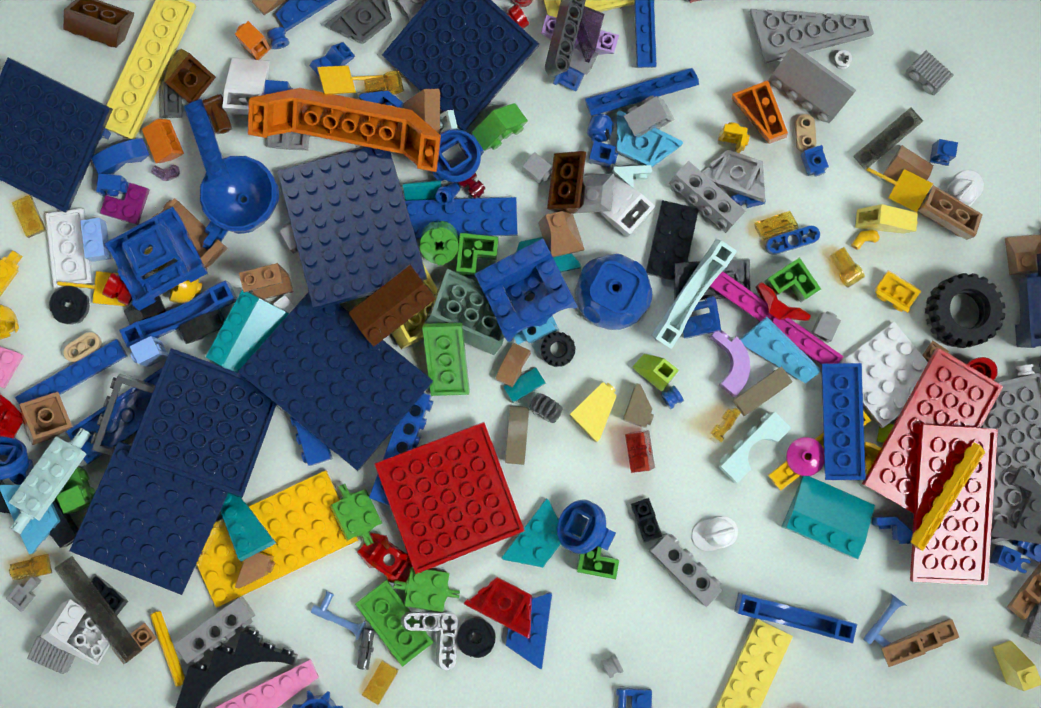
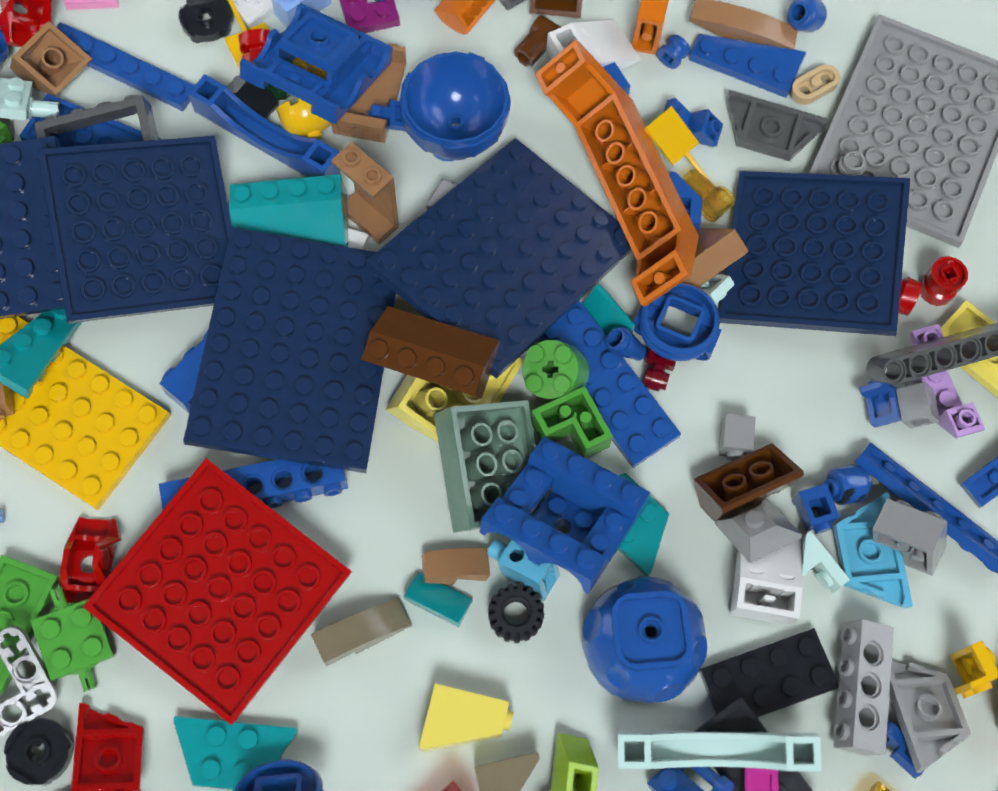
camera: 60 degrees right, 15 degrees down
(83, 347) = (165, 56): tan plate -> none
(148, 351) = (197, 117): light blue brick -> none
(168, 174) = (429, 31): clear purple arm -> none
(201, 326) = (266, 162): pearl dark grey slope -> none
(207, 142) = (491, 38): blue plate -> none
(289, 141) = (561, 132): light grey slope -> none
(355, 514) = (127, 483): bright green plate -> none
(446, 359) = (406, 468): bright green plate -> none
(499, 126) = (757, 352): bright green brick -> none
(546, 408) = (423, 645): dark grey gear -> none
(561, 233) = (674, 518): medium nougat slope -> none
(589, 31) = (960, 387): clear purple slope -> none

